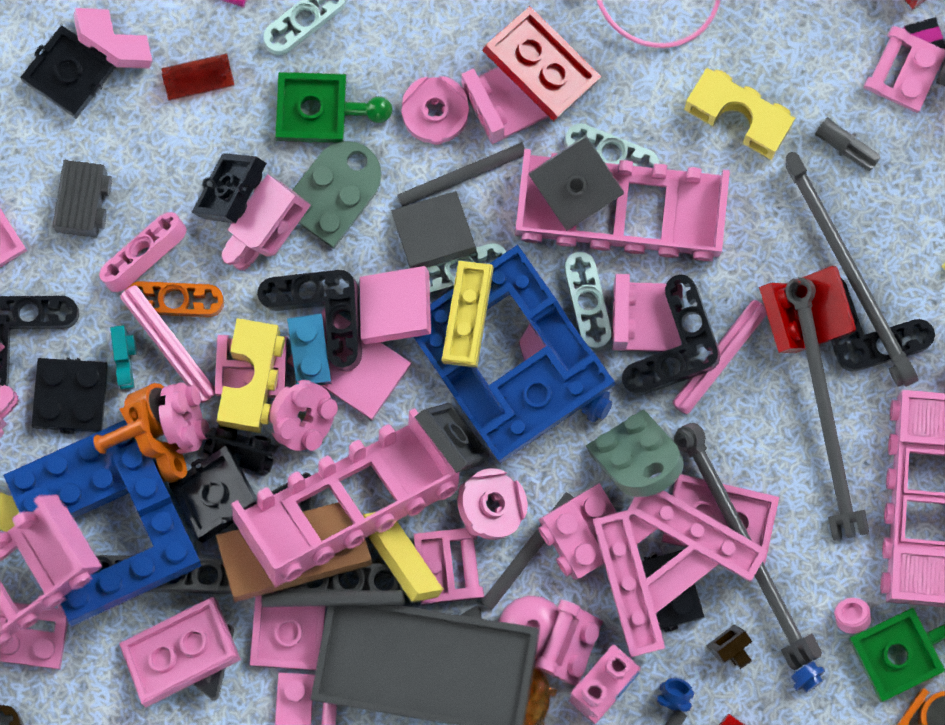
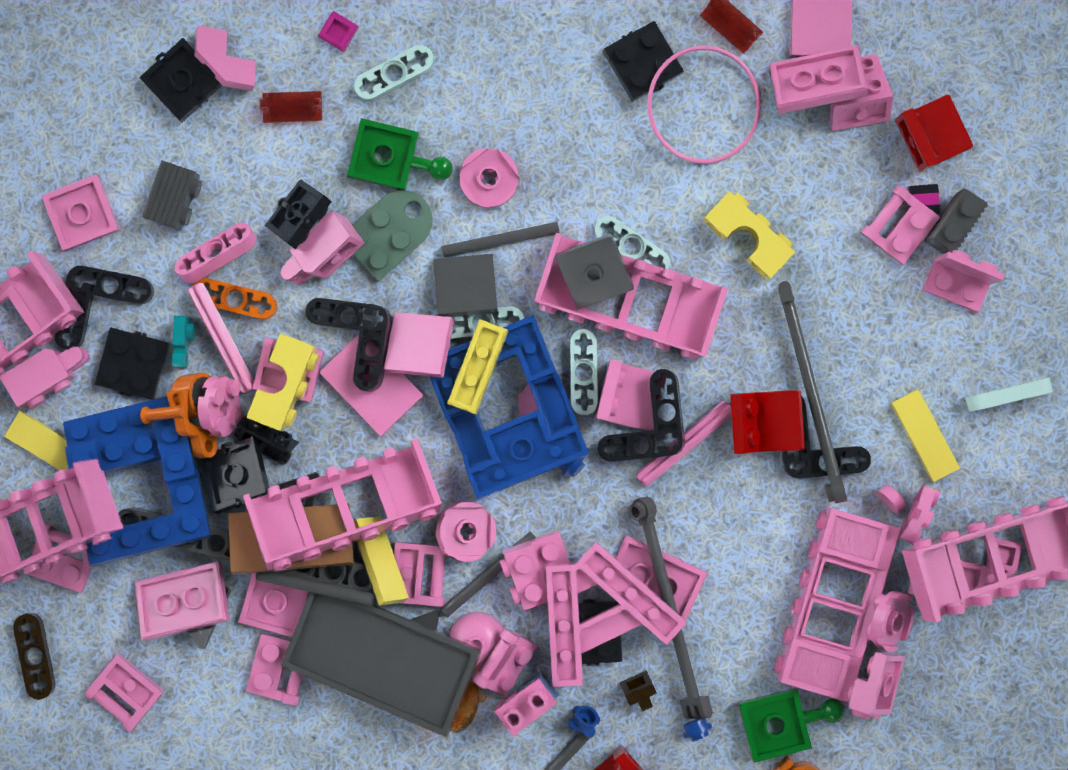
camera: 15 degrees right, 10 degrees up
(309, 349) = (339, 368): dark azure plate -> none
(318, 420) = (330, 434): bright pink plate -> none
(452, 437) = (443, 469): dark grey tile -> none
(500, 104) = (551, 181): bright pink bracket -> none
(541, 63) = (588, 157): plate -> none
(635, 453) = (596, 514): sand green plate -> none
(847, 144) = (835, 281): dark grey axle -> none
(847, 516) = (760, 599): dark grey hinge -> none
(852, 615) = (745, 685): bright pink tile -> none

